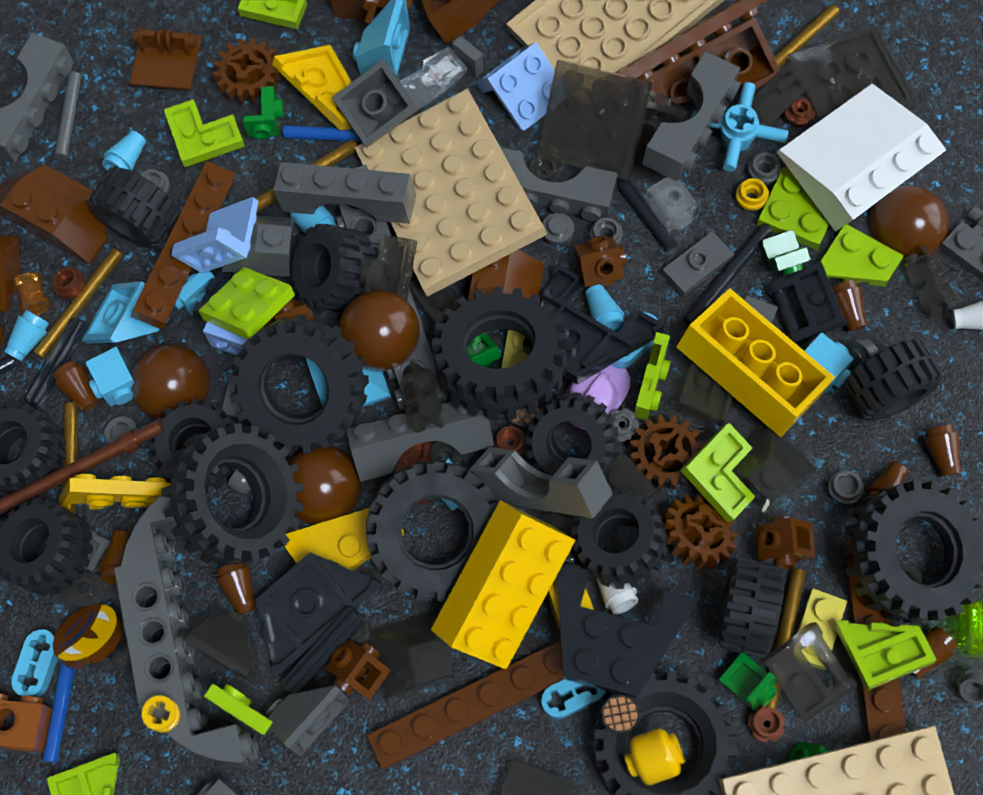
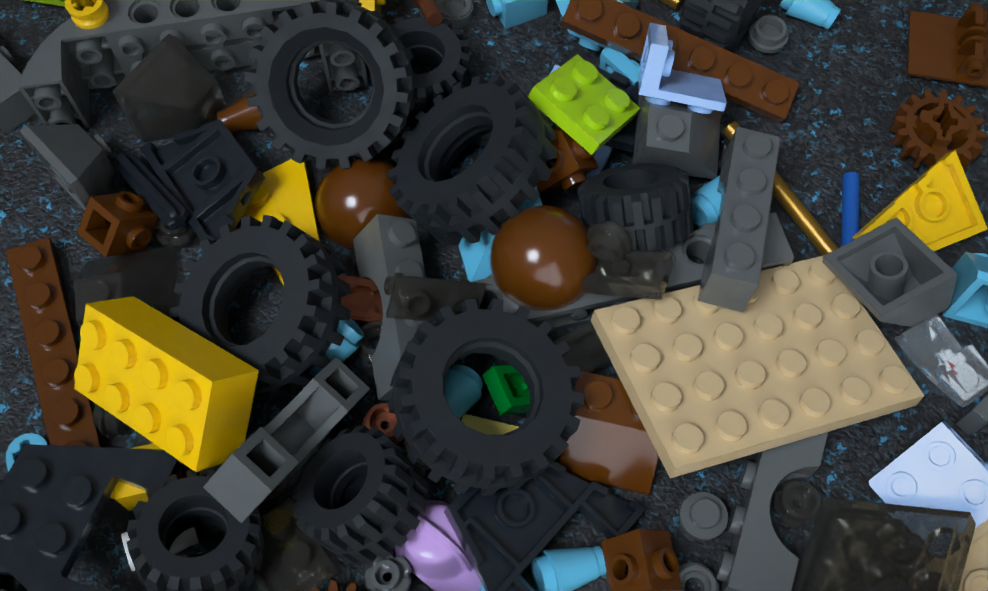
camera: 90 degrees right, 5 degrees down
(167, 377) = (514, 47): reddish brown piece -> none
(200, 141) = (833, 82): lime plate -> none
(238, 706) = (89, 97): lime wing -> none
(268, 123) = (871, 154): green bracket -> none

